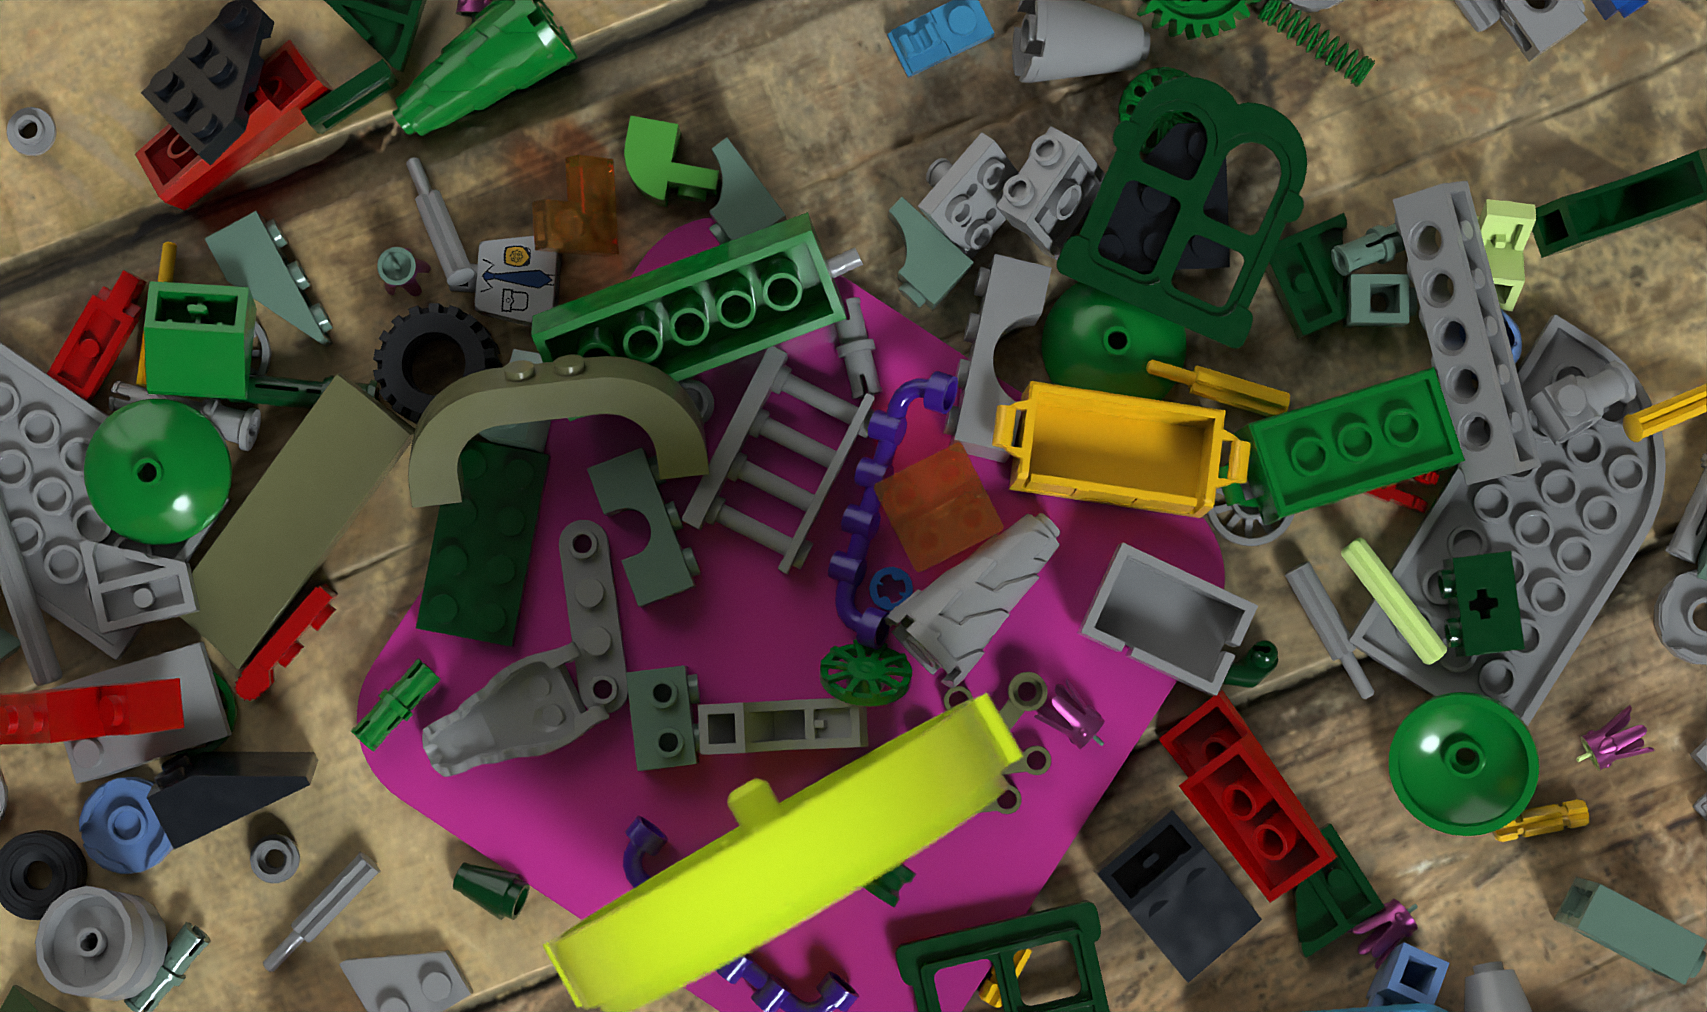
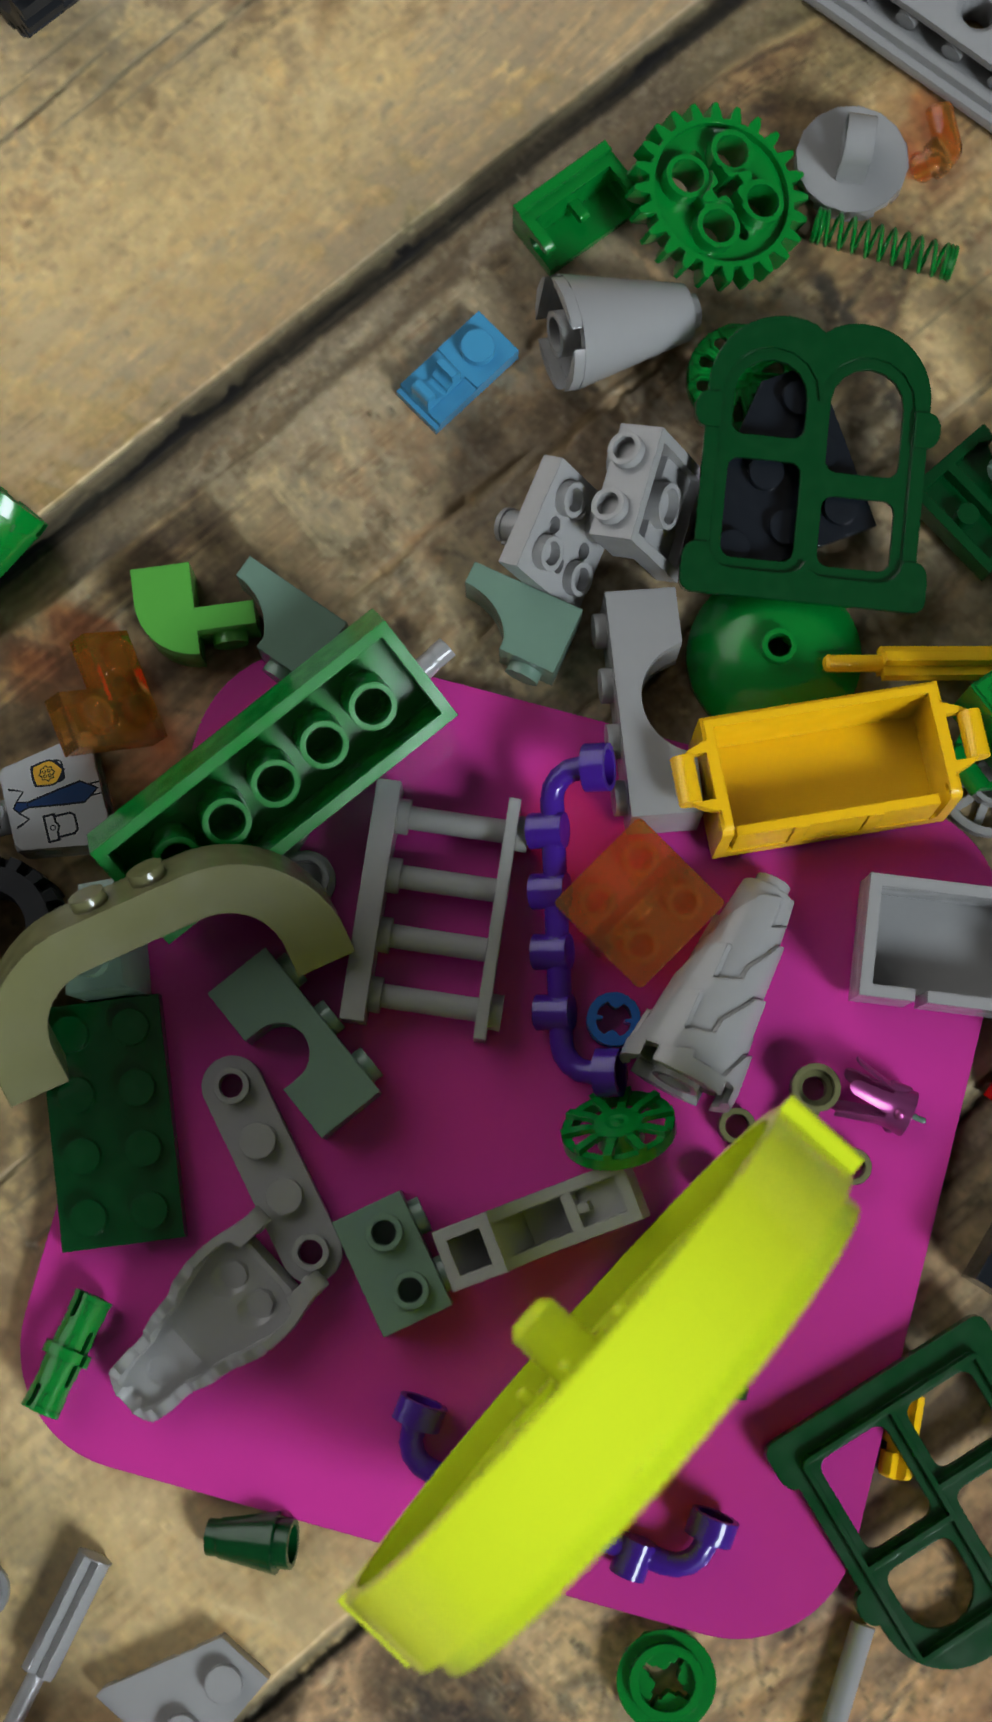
camera: 20 degrees left, 5 degrees down
(857, 352) = (481, 755): light grey pin -> none

